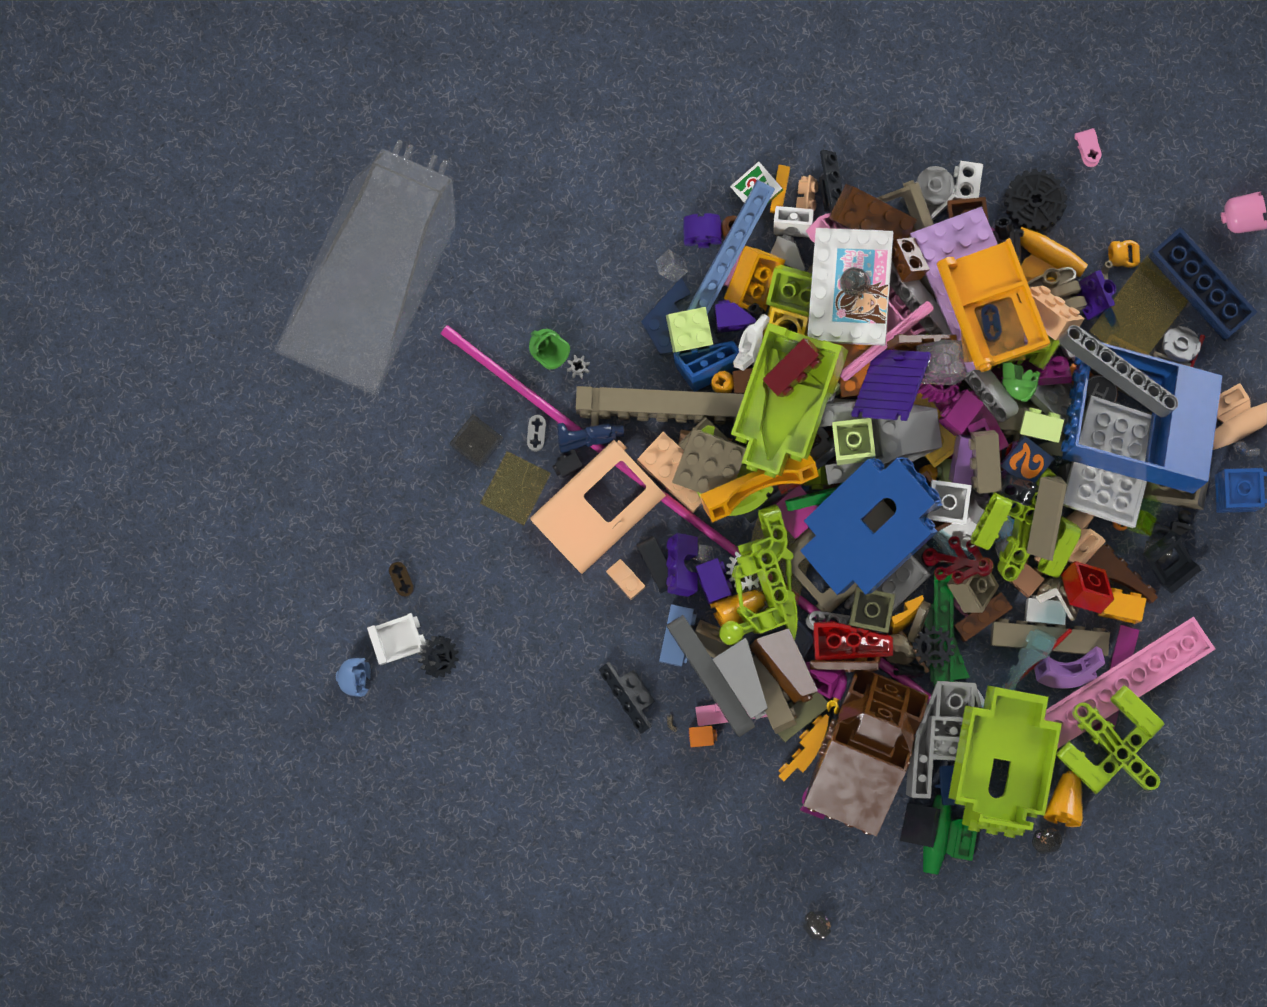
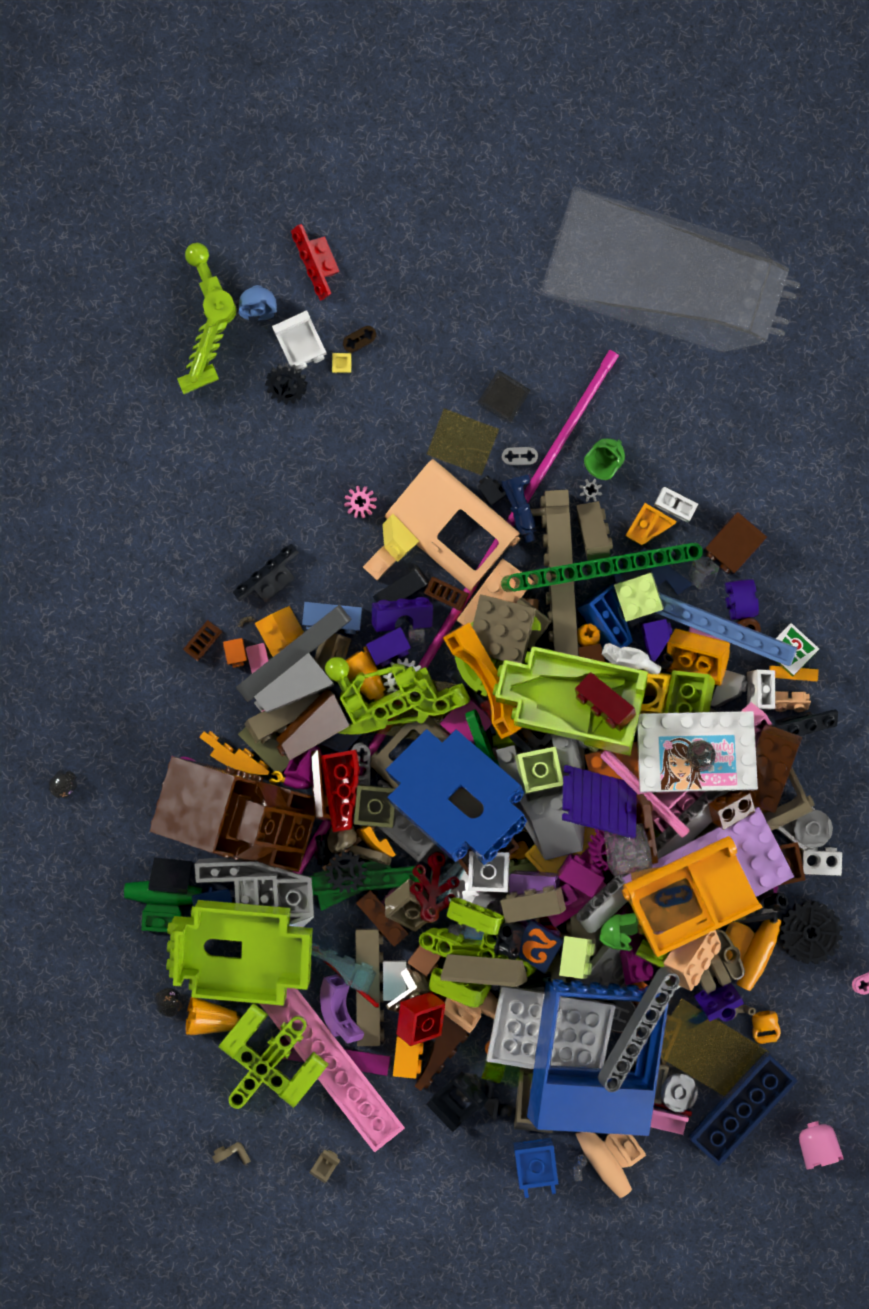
camera: 80 degrees right, 5 degrees up
(317, 613) = (317, 260): none -> red bracket
(356, 716) = (219, 311): none -> lime piece
(423, 599) = (341, 362): none -> light yellow tile
(559, 591) = (356, 506): none -> bright pink gear
(602, 284) = (675, 504): none -> white brick
(605, 561) = (397, 538): none -> light yellow slope
(618, 314) = (648, 525): none -> light orange wing
(619, 366) = (594, 530): none -> dark tan brick
(646, 231) = (734, 543): none -> reddish brown slope
(656, 533) = (432, 586): none -> reddish brown slope
(657, 368) = (594, 570): none -> green beam
(685, 689) = (279, 629): none -> light orange slope
(696, 782) = (192, 653): none -> reddish brown slope
(1203, 803) = (222, 1153): none -> dark tan plate
(1208, 355) = (669, 1121): none -> bright pink panel
(1223, 701) = (324, 1165): none -> dark tan bracket

